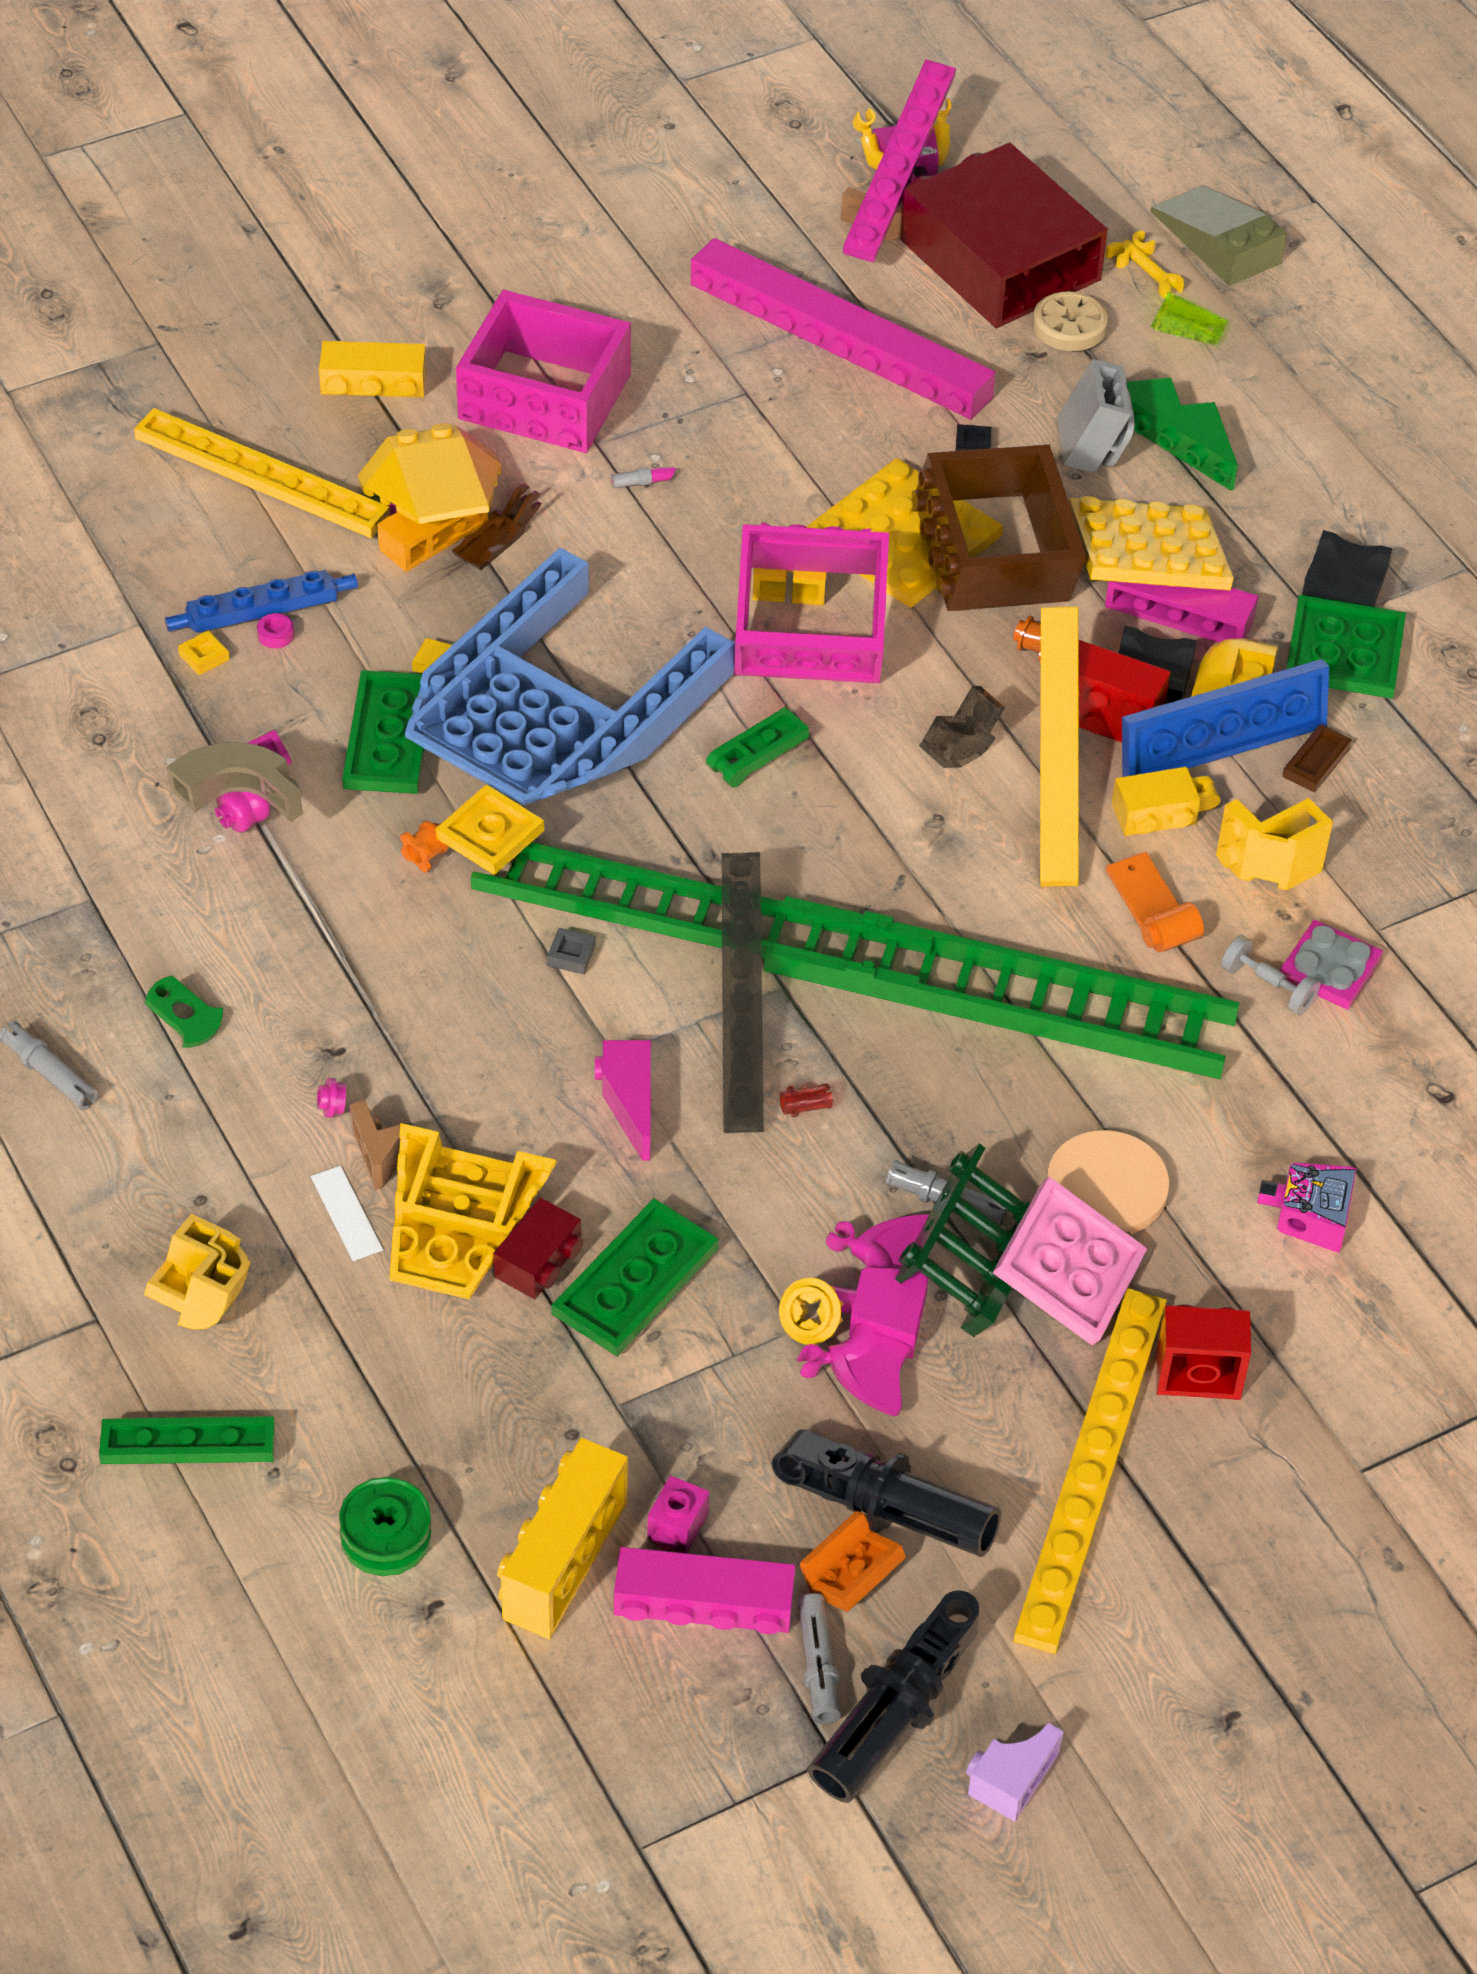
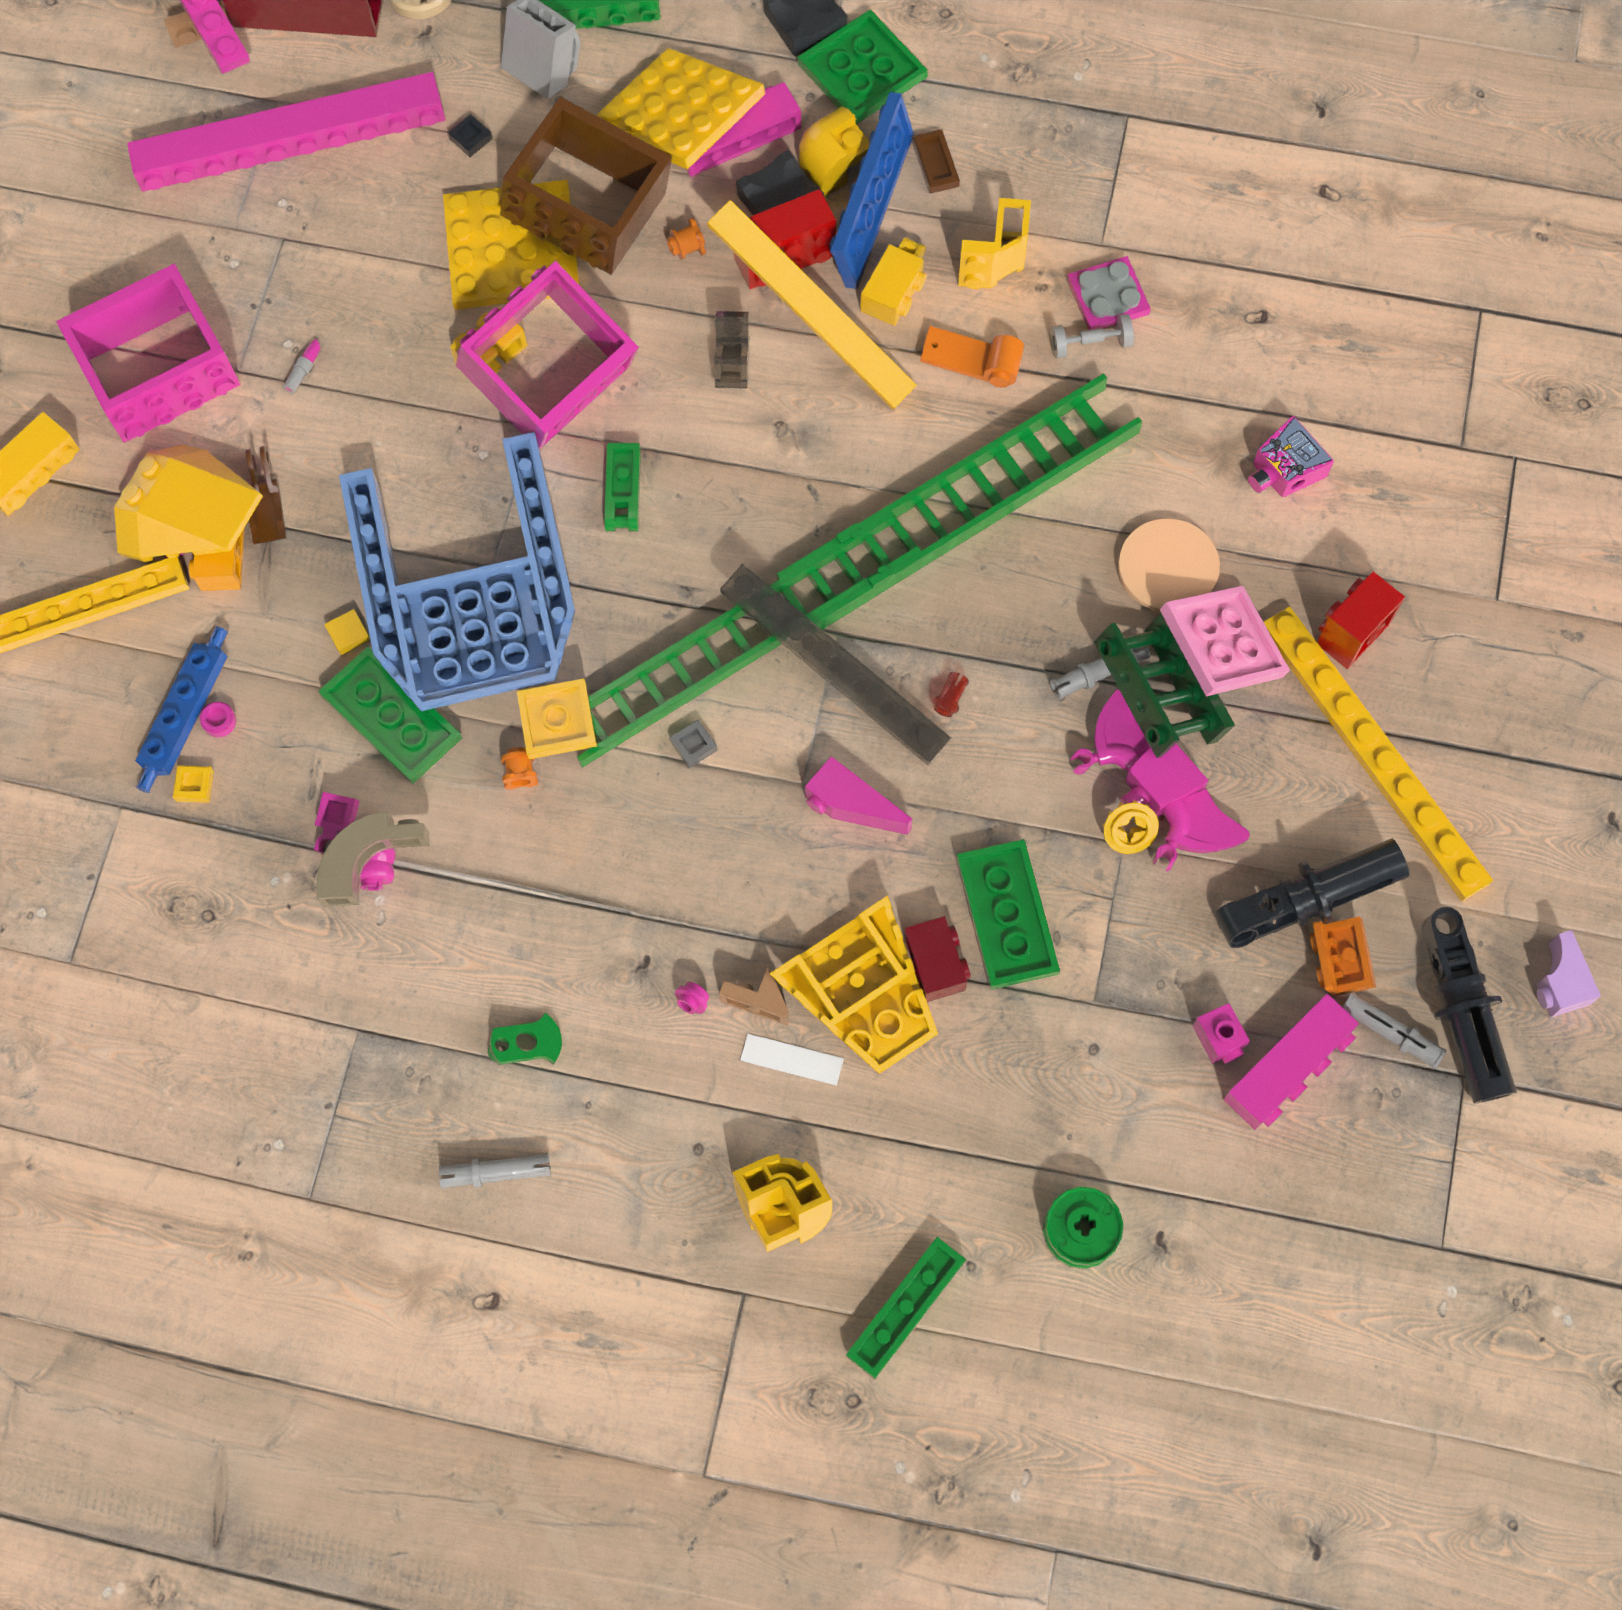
camera: 45 degrees left, 20 degrees up
(563, 1537) = (1193, 1121): yellow brick -> none

